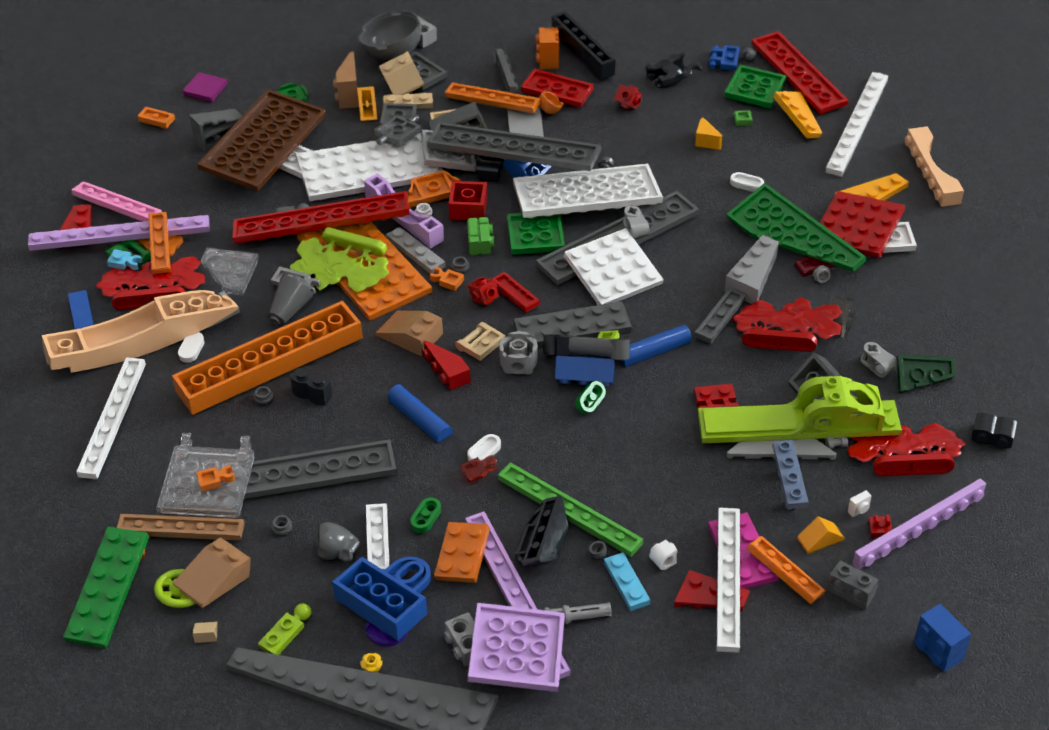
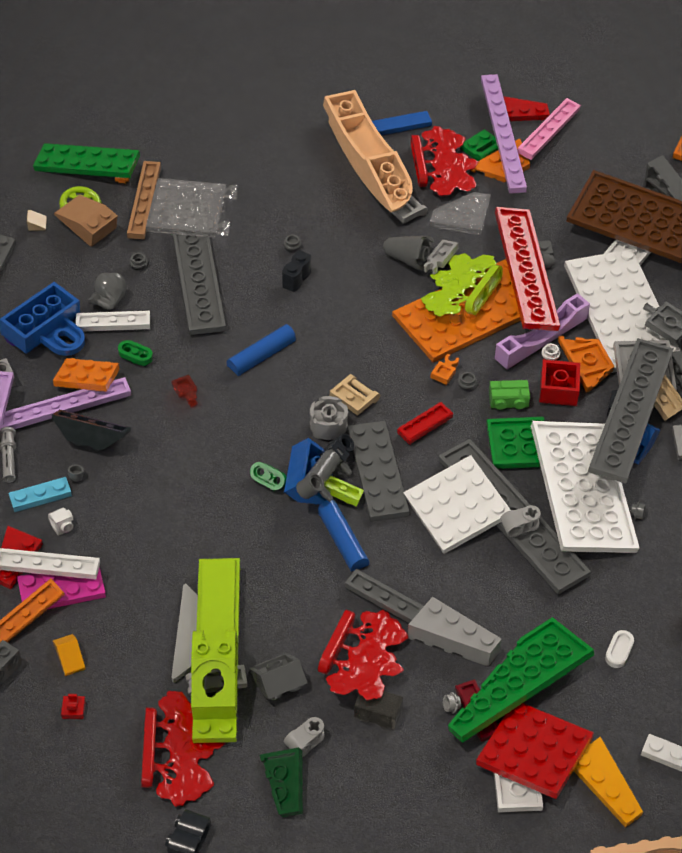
camera: 90 degrees right, 5 degrees up
(111, 418) = (273, 150): white plate -> none
(122, 259) = (464, 137): medium azure plate -> none
(159, 243) = (483, 155): orange tile -> none
(191, 347) = (357, 194): white tile -> none
(212, 478) = (179, 204): orange plate -> none
(267, 357) = (335, 241): orange brick -> none
(285, 630) = (27, 267): lime plate -> none
(411, 328) = (370, 343): medium nougat slope -> none
(415, 250) = (486, 350): light grey plate -> none
(449, 366) = (318, 368): red slope -> none
(483, 290) = (421, 393): red brick -> none
(486, 446) = (213, 397): white tile -> none
(575, 511) = (127, 455): bright green plate -> none
(715, 396) = (269, 583): red plate -> none
(790, 474) = (135, 622): sand blue plate -> none
(859, 504) = (100, 689): white plate -> none
(914, 527) = (69, 747): lavender plate -> none

